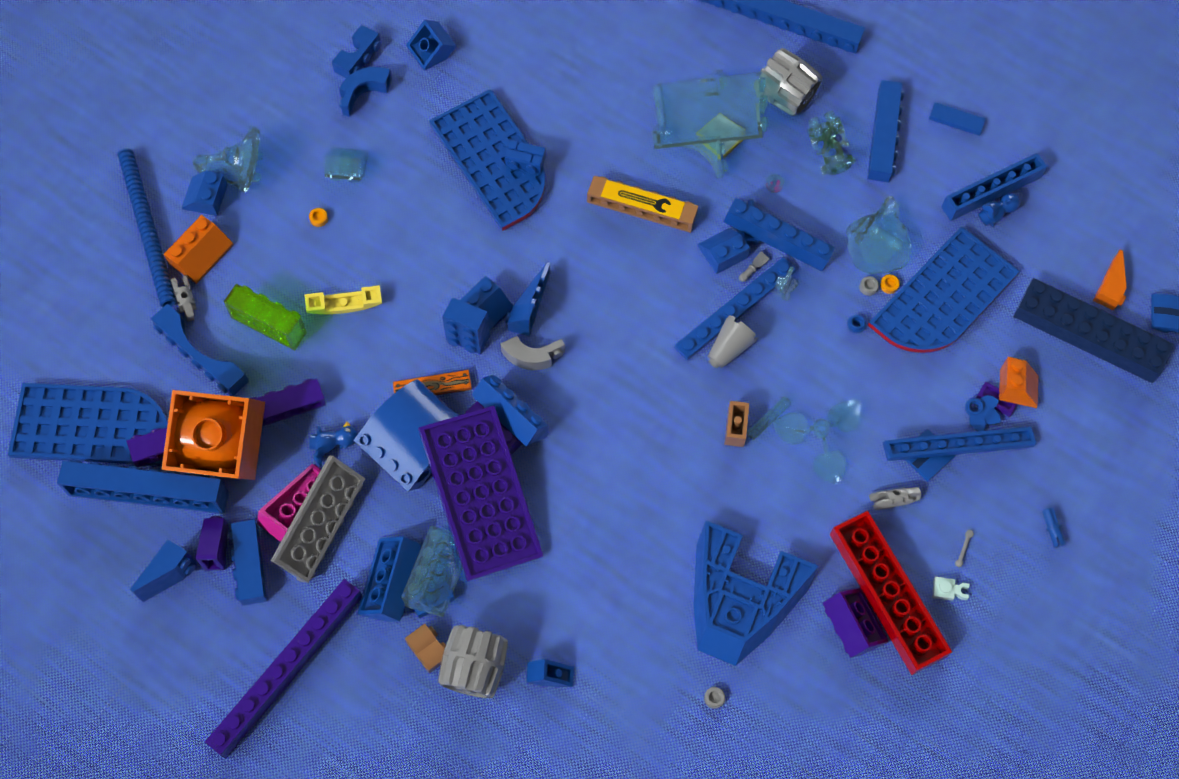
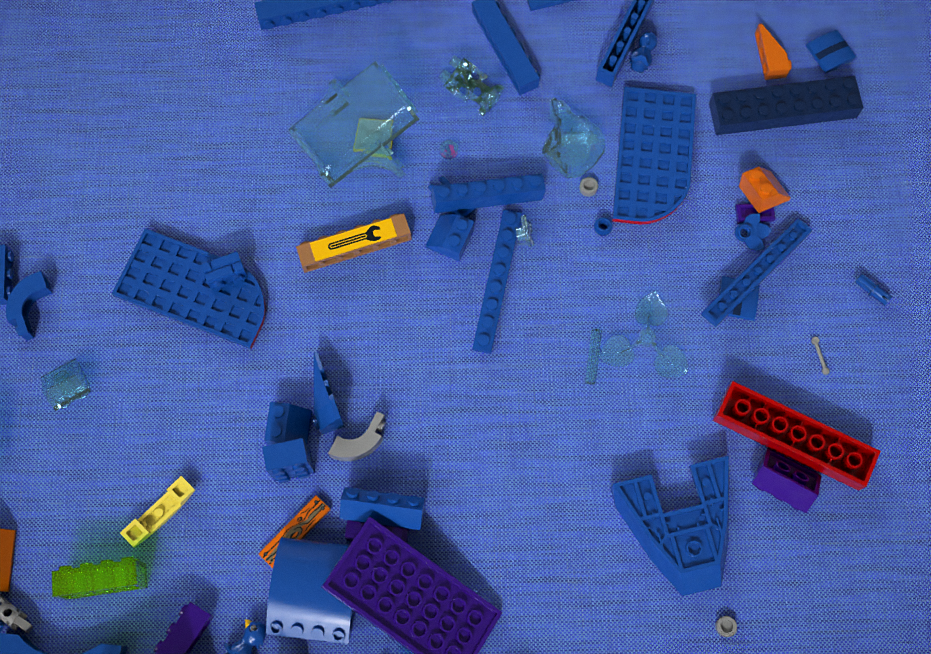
camera: 35 degrees left, 5 degrees up
(318, 217) = (76, 450): light orange tile -> none
(430, 44) = (60, 222): blue slope -> none
(730, 342) = (517, 314): light grey cone -> none
(736, 424) = (574, 381): medium nougat brick -> none
(758, 262) = (486, 227): light grey piece -> none
(790, 82) = (401, 52): light grey wheel -> none
(889, 284) = (603, 173): light orange tile -> none
(895, 497) = (740, 352): light grey hinge -> none
(946, 589) = (832, 399): light aqua plate -> none

